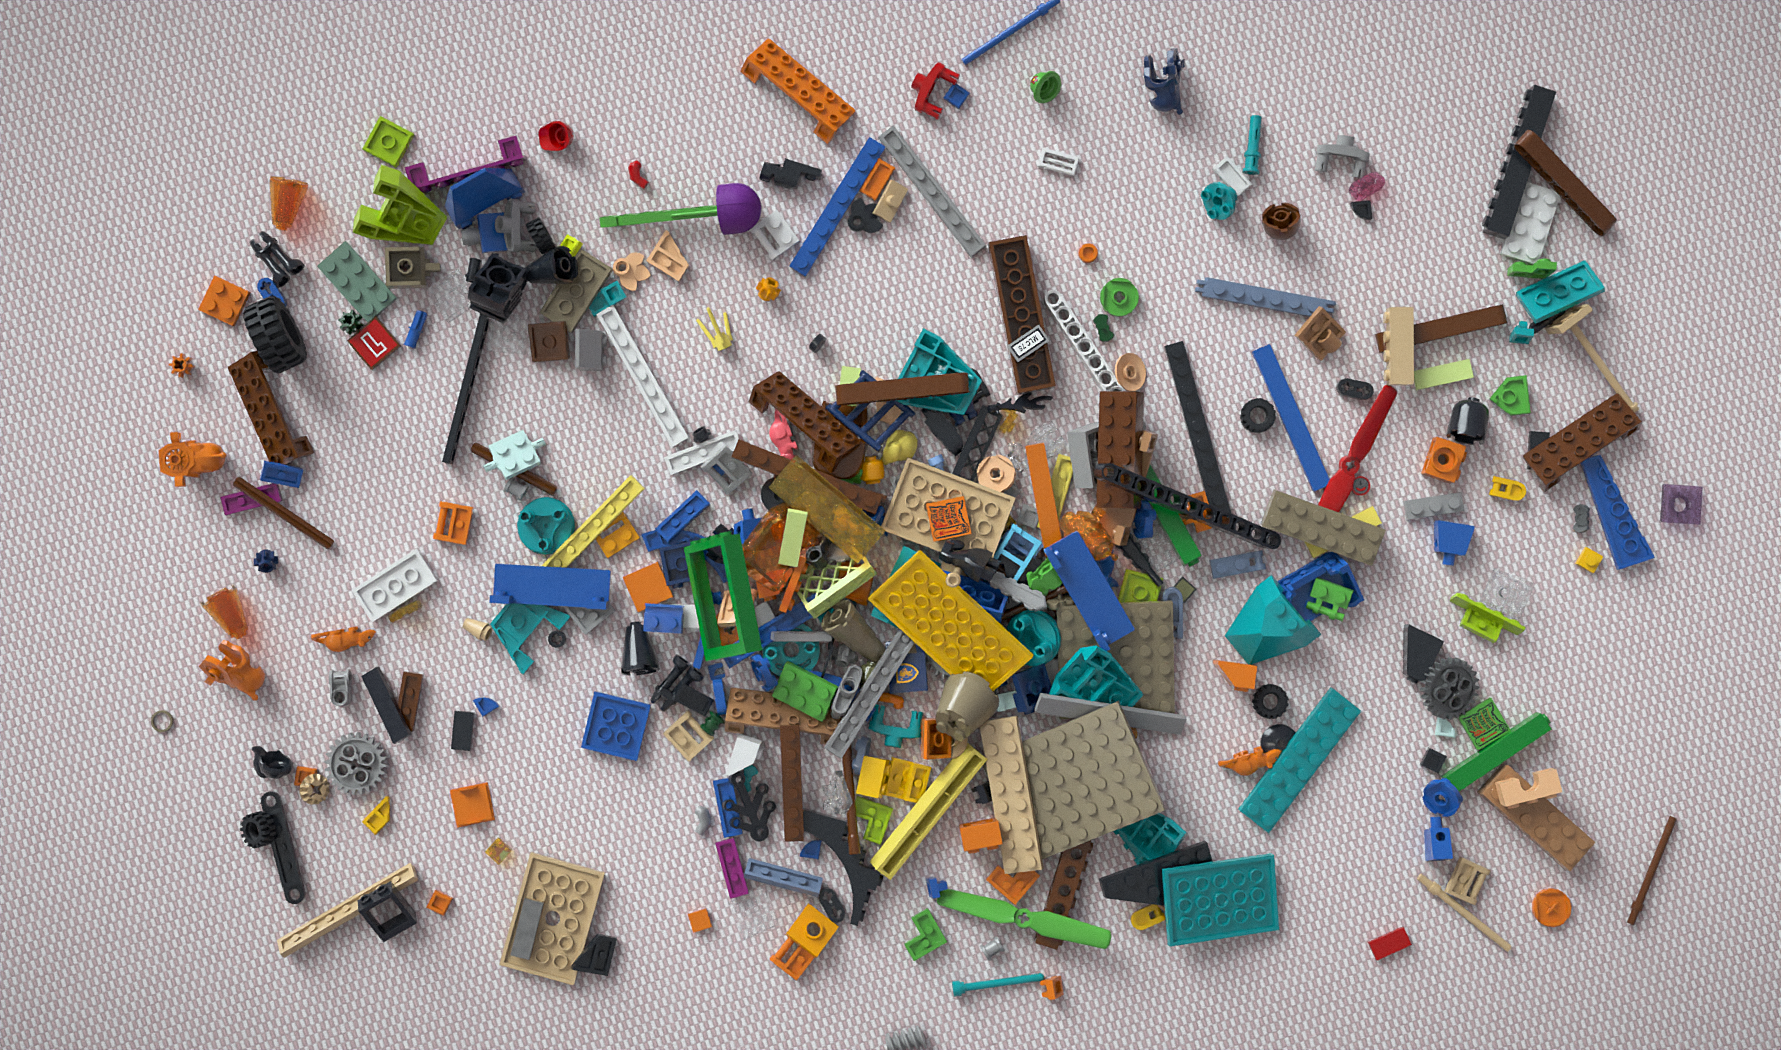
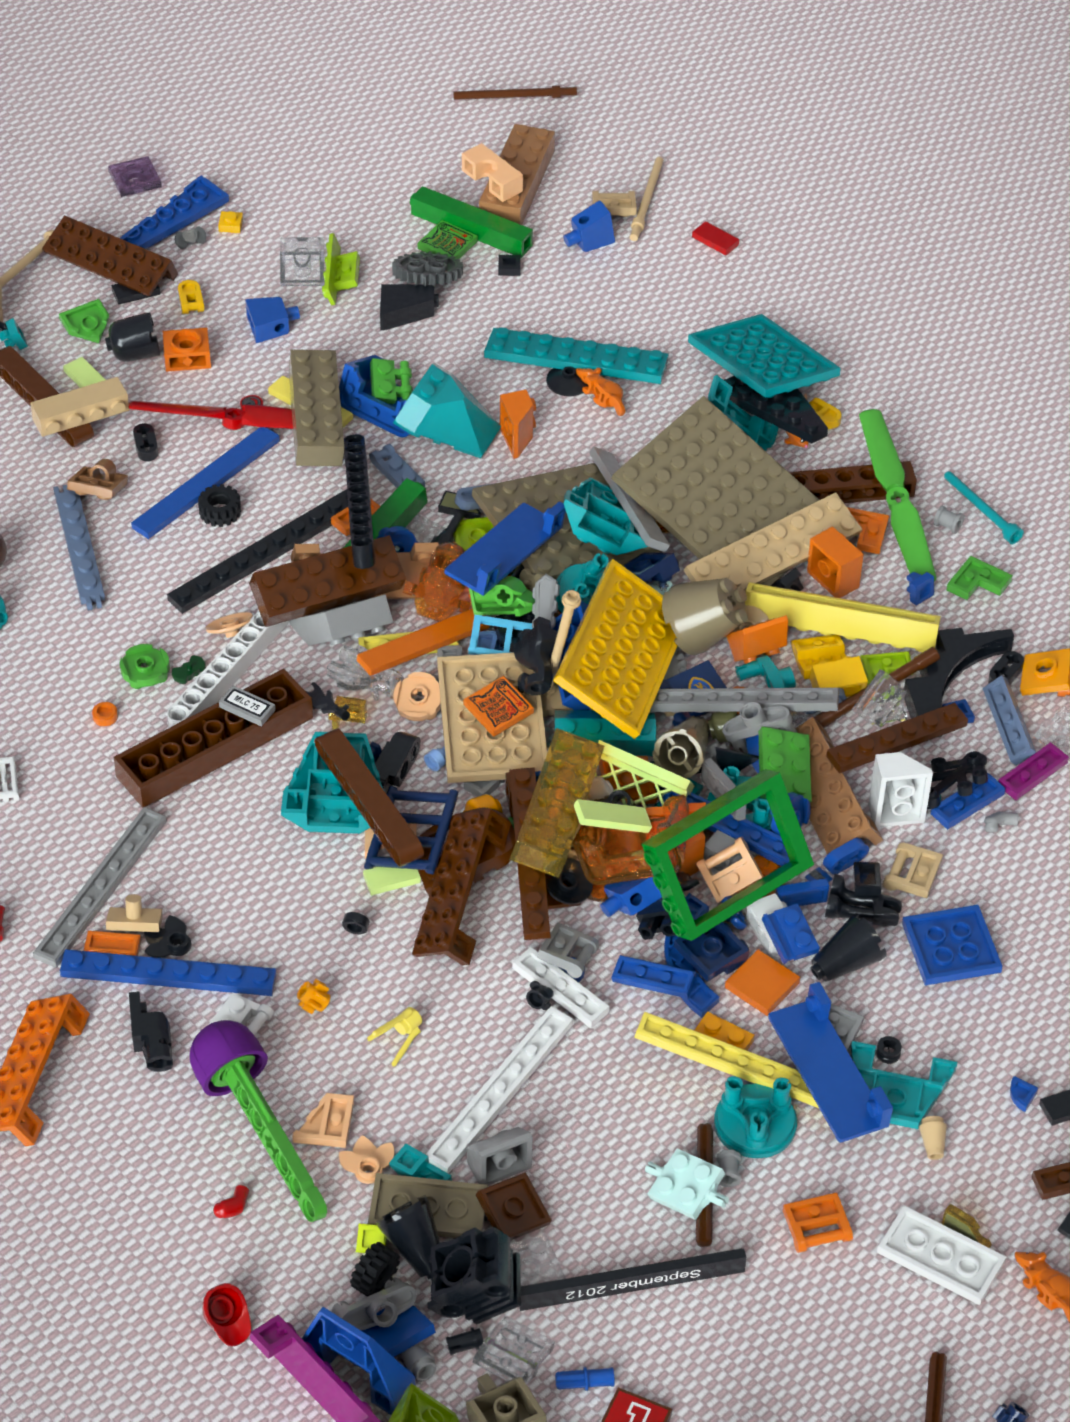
camera: 115 degrees left, 40 degrees down
(712, 723) = (882, 851): dark green bush -> none
(780, 436) = (493, 913): coral animal -> none
(899, 447) = (439, 786): light yellow hair -> none
(972, 438) = (381, 731): black fence -> none
(1054, 987) = (952, 457): orange tile -> none
(1281, 704) = (534, 387): black tyre -> none
(1433, 506) = (240, 345): light grey plate -> none
(1444, 728) = (471, 268): light aqua tile -> none
(1448, 791) = (547, 249): blue plate -> none
(1551, 907) = (598, 145): orange tile -> none

